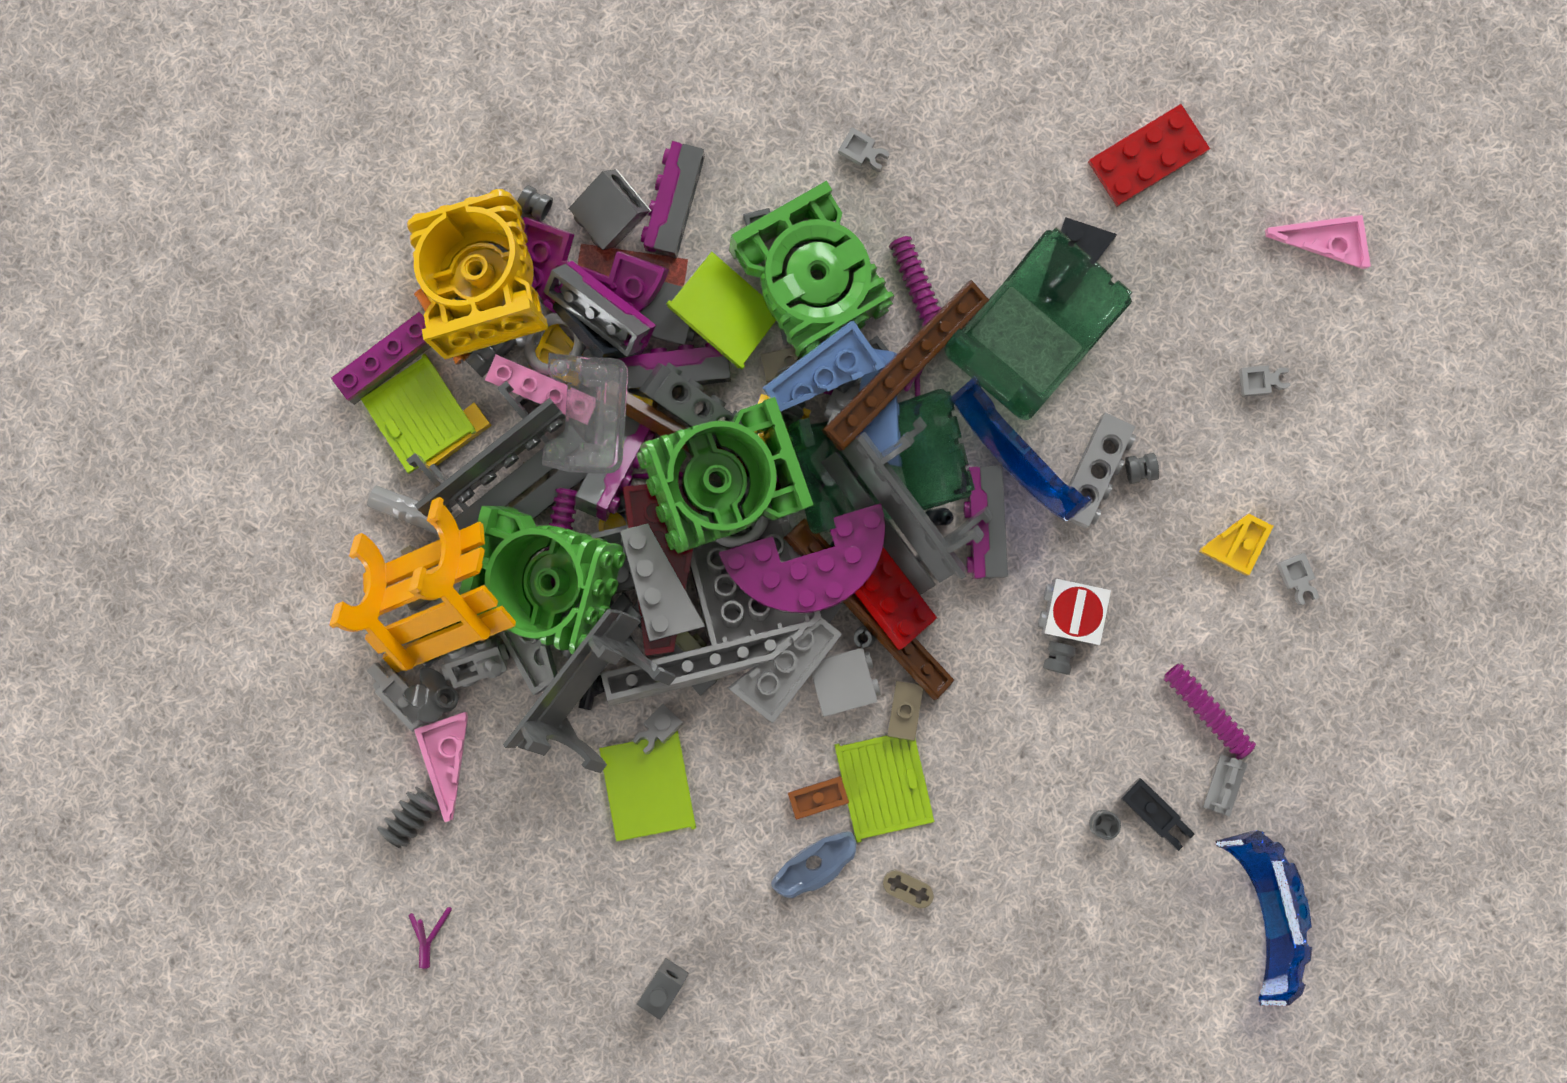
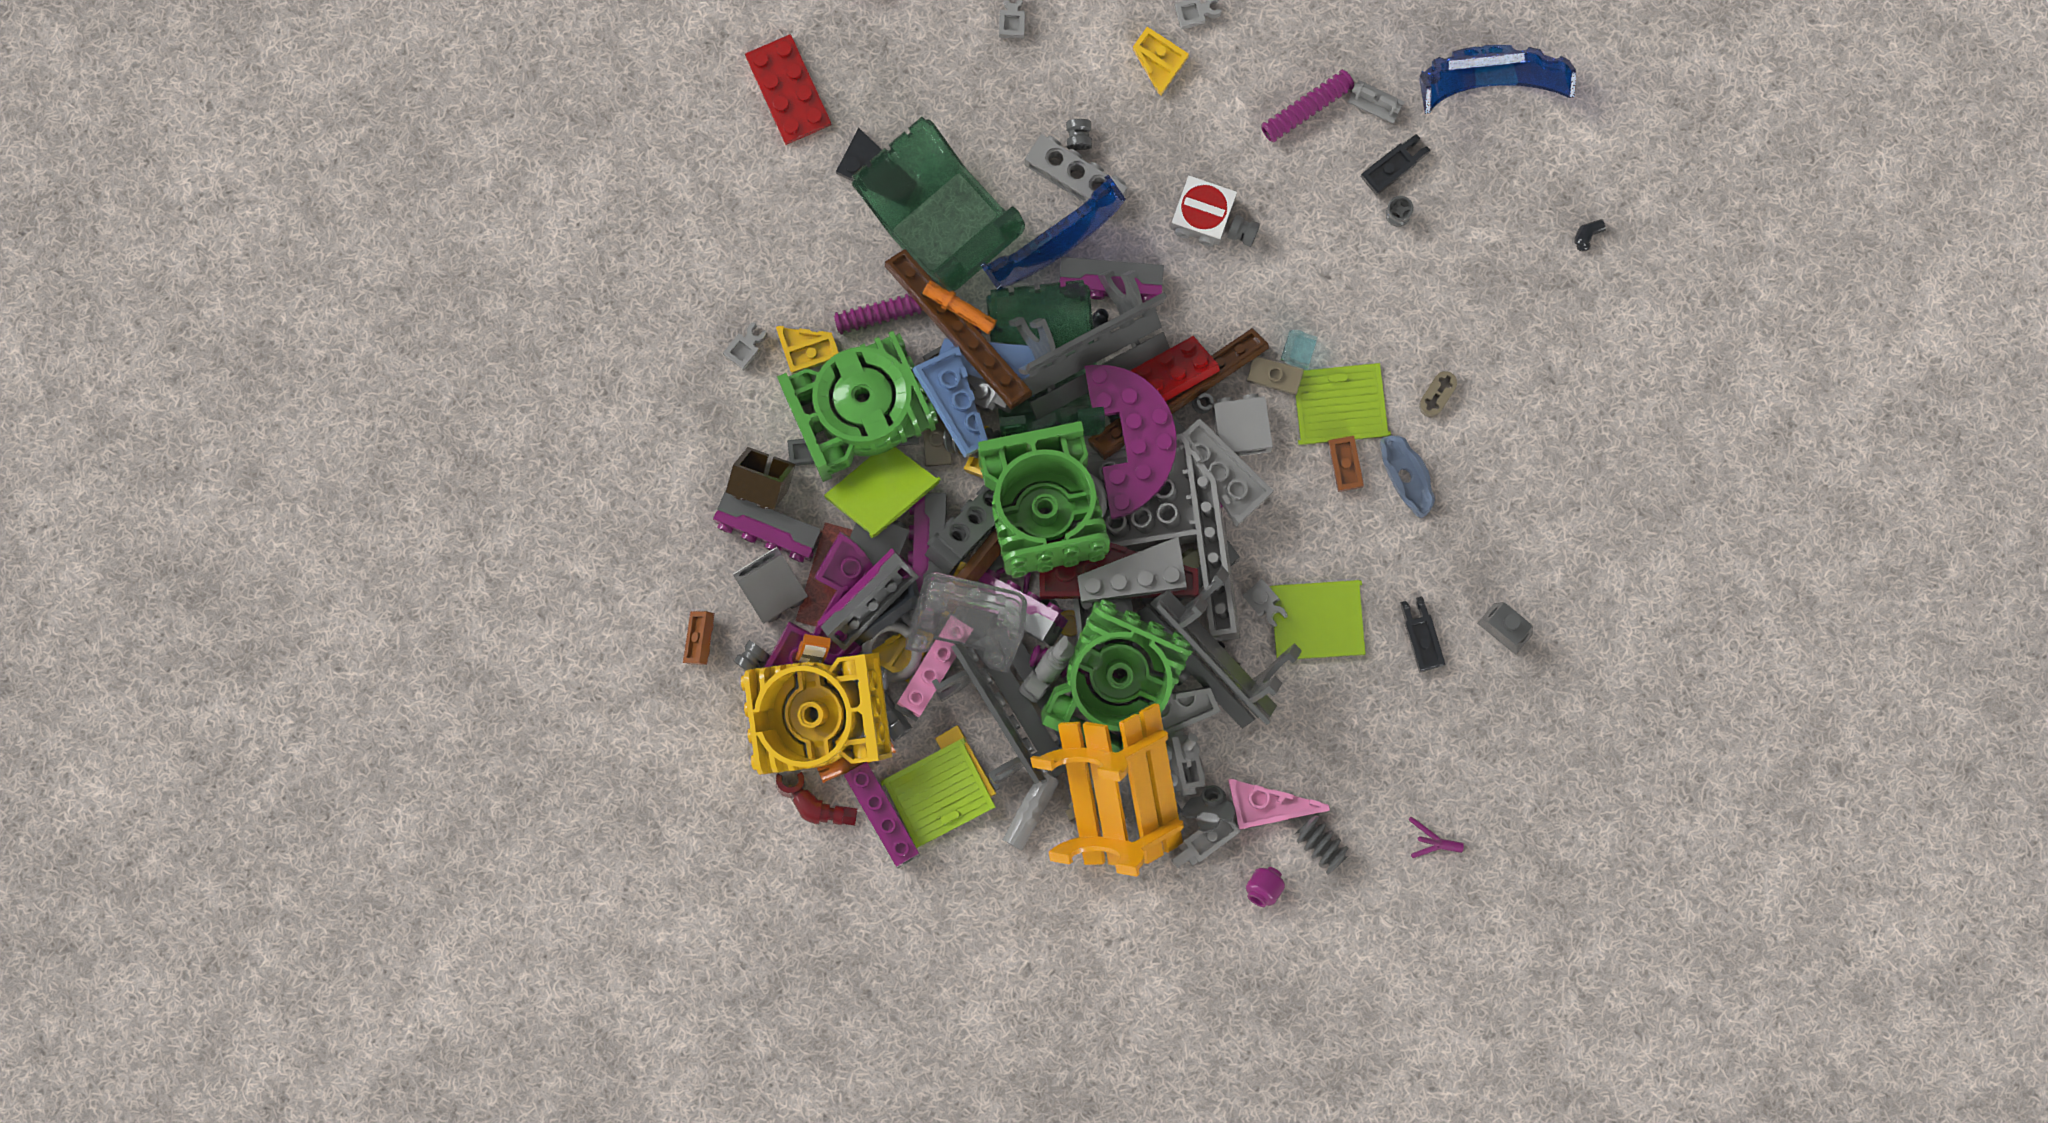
camera: 85 degrees left, 5 degrees down
(357, 763) = (1265, 886): none -> magenta head
(385, 289) = (813, 809): none -> dark red piece
(541, 260) = (813, 649): none -> slope
(549, 146) = (698, 637): none -> dark orange plate
(550, 507) = (1047, 670): none -> light grey piece
(641, 901) = (1423, 637): none -> black hinge
(714, 172) = (751, 484): none -> dark brown piece
(869, 213) = (806, 348): none -> yellow wing
(933, 351) = (963, 309): none -> orange pin
(937, 732) = (1298, 349): none -> clear light blue piece
(1108, 1031) = (1586, 232): none -> black arm

